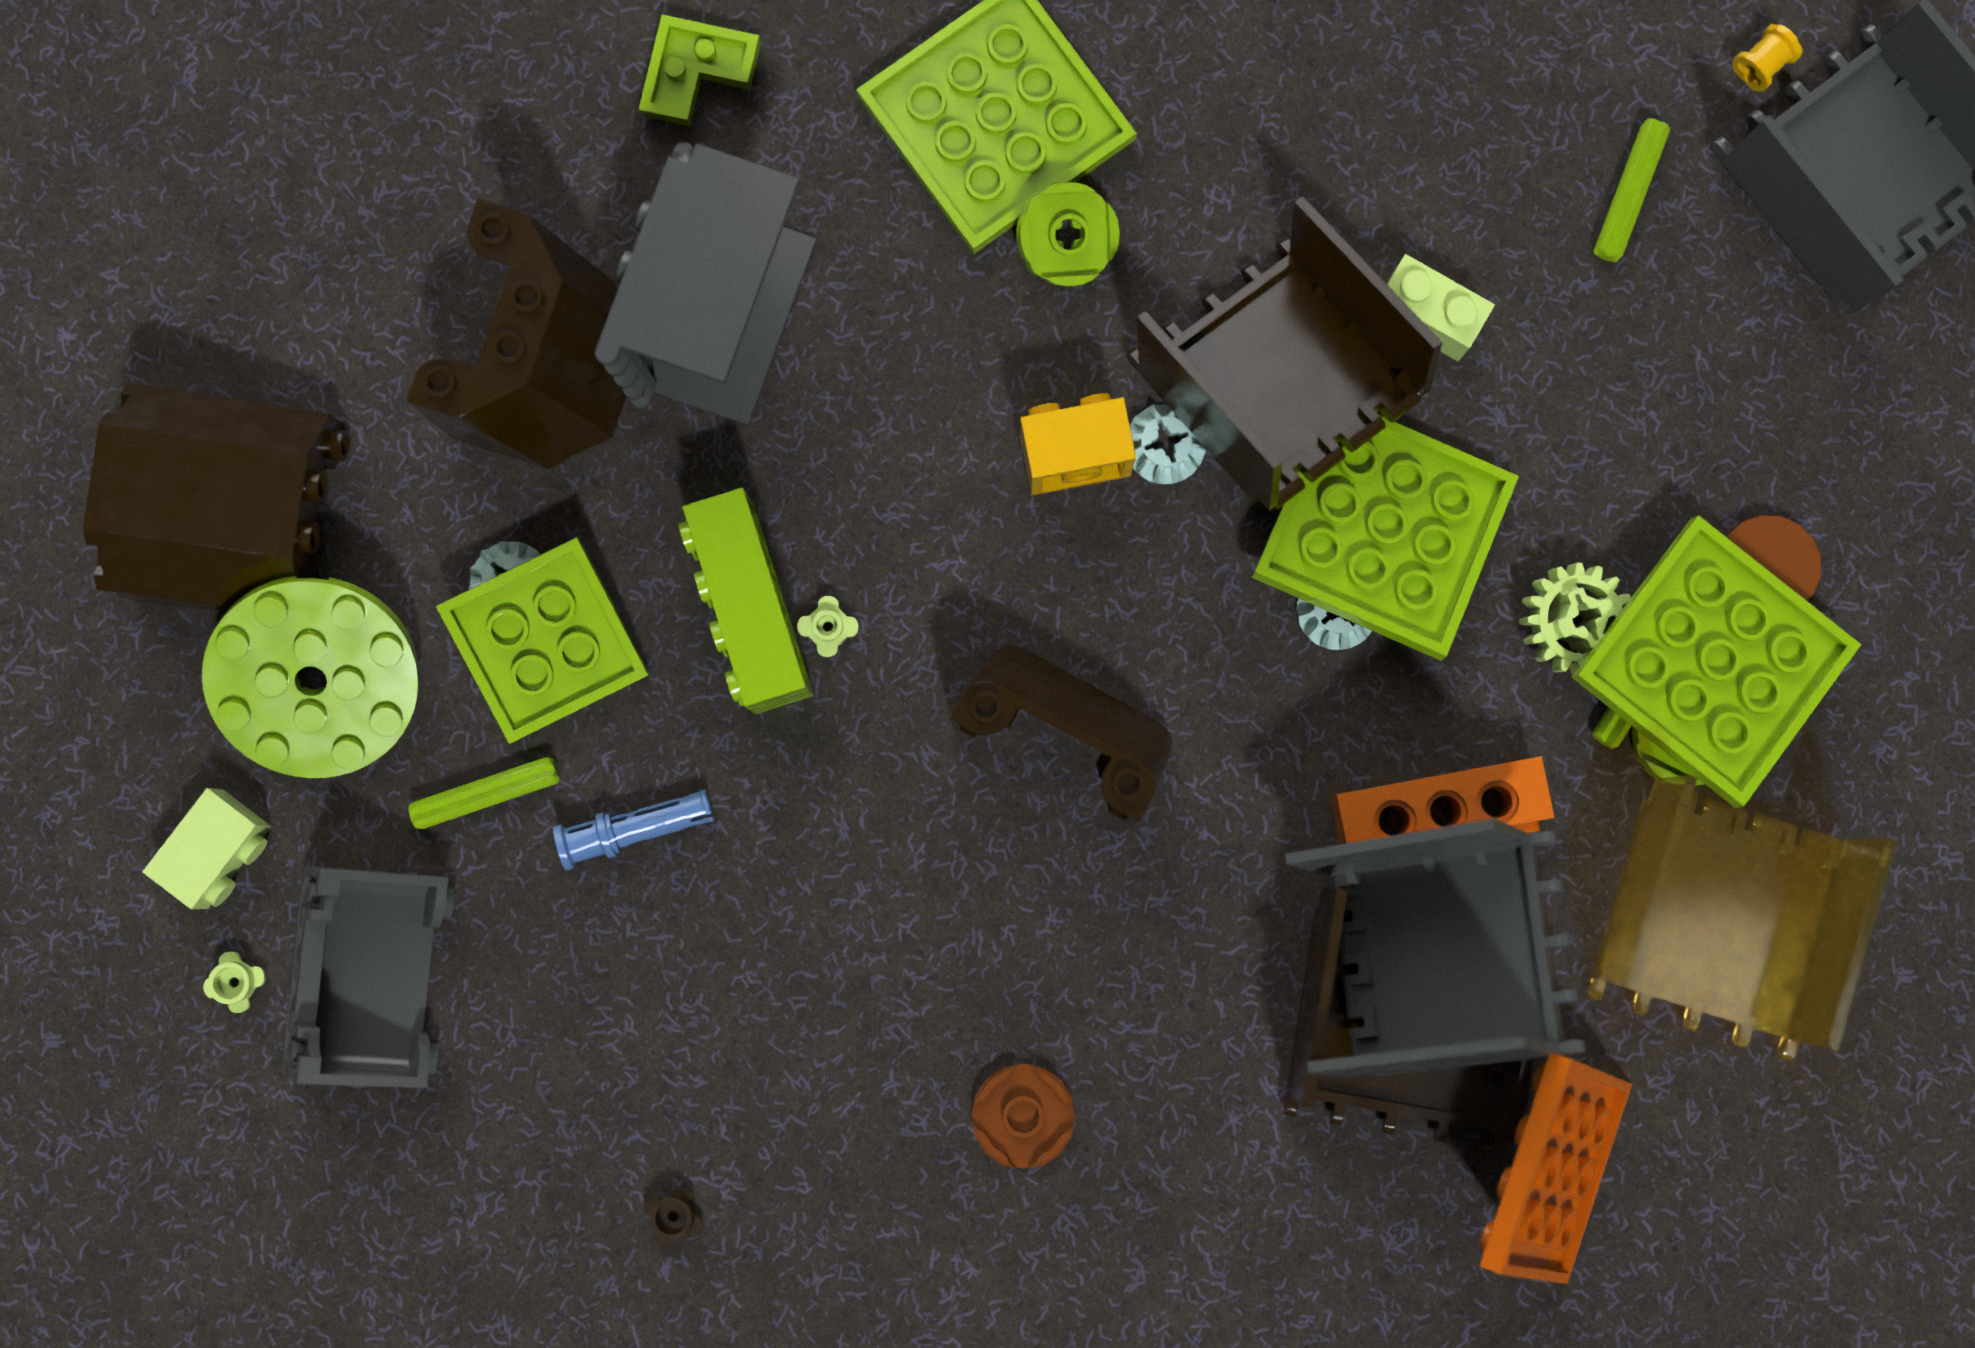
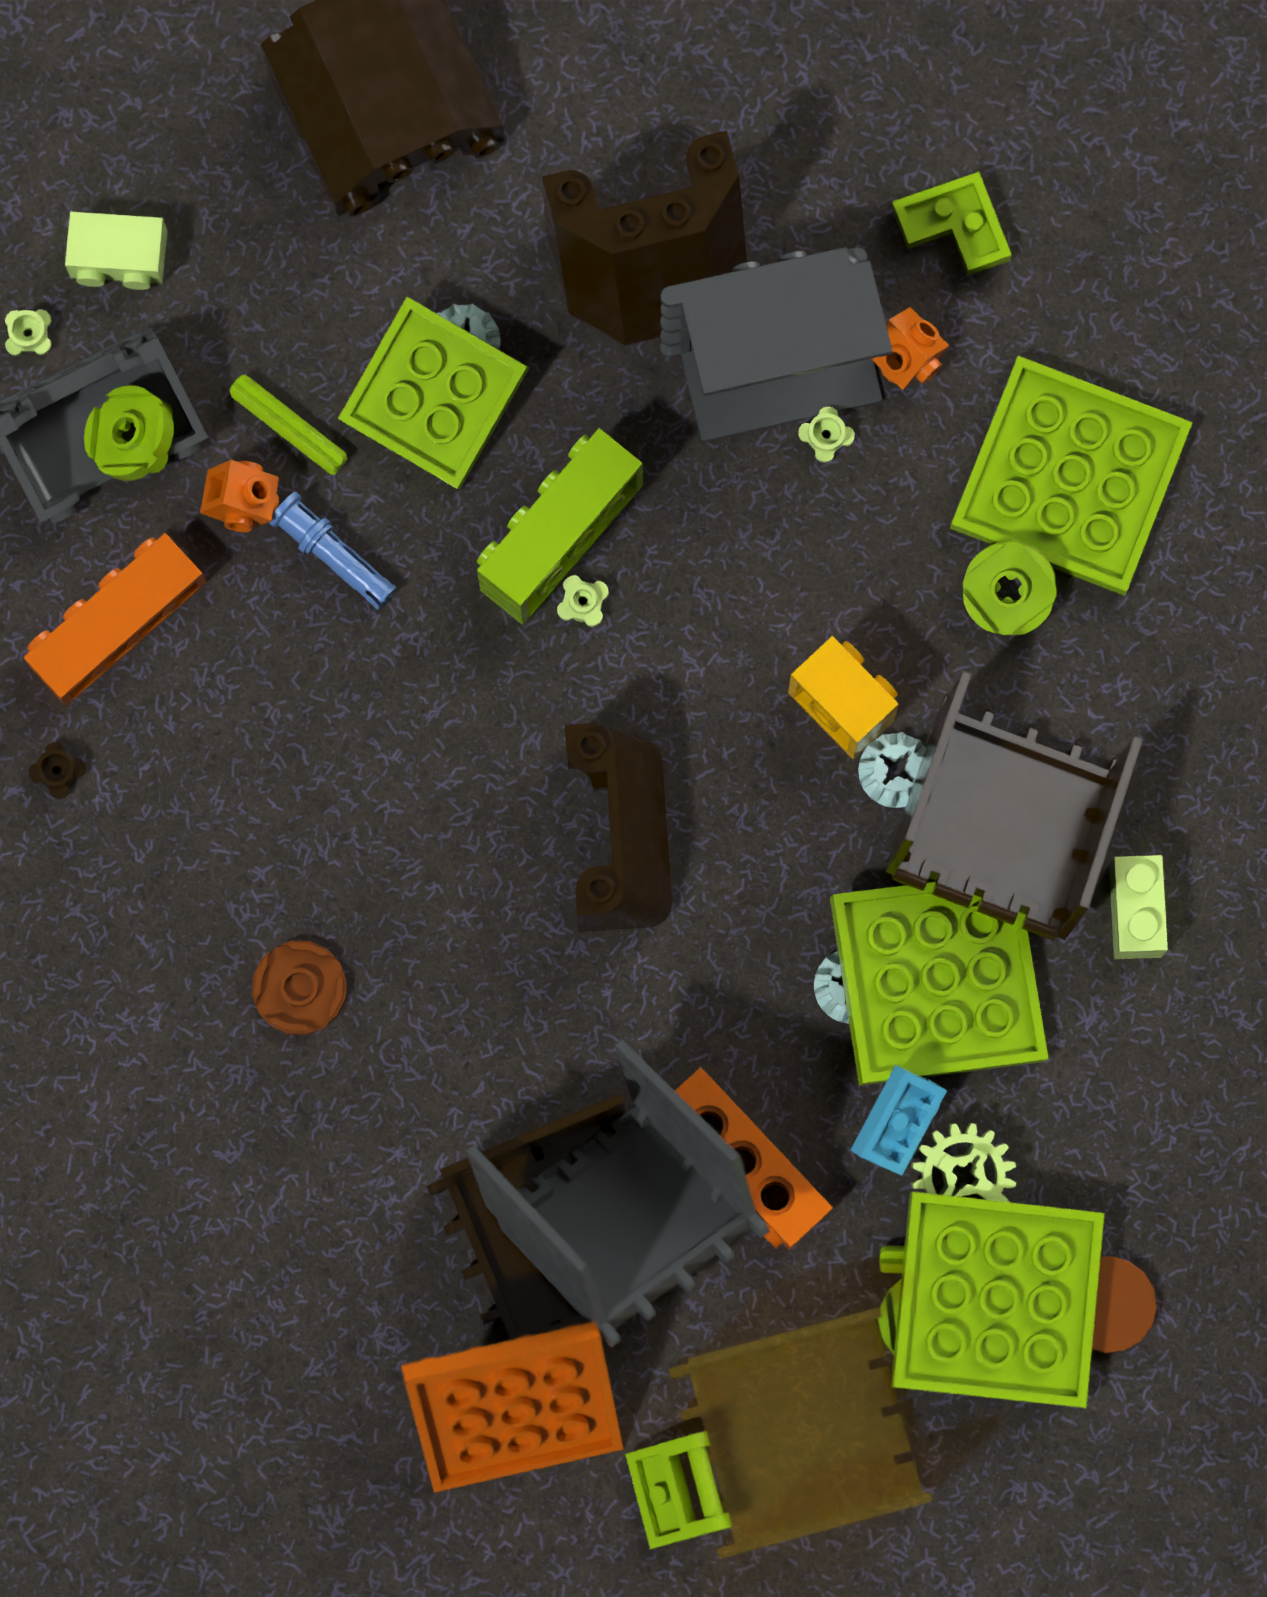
camera: 55 degrees right, 5 degrees down
(320, 624) = (340, 231): lime plate -> none
(416, 933) = (150, 444): none -> lime plate
(523, 881) = (240, 495): none -> orange brick
(564, 1074) = (114, 618): none -> orange brick
(796, 162) = (914, 348): none -> orange brick
(805, 297) = (829, 421): none -> yellowish green plate
(1499, 645) = (898, 1120): none -> medium azure bracket
(1706, 1075) = (665, 1495): none -> lime plate

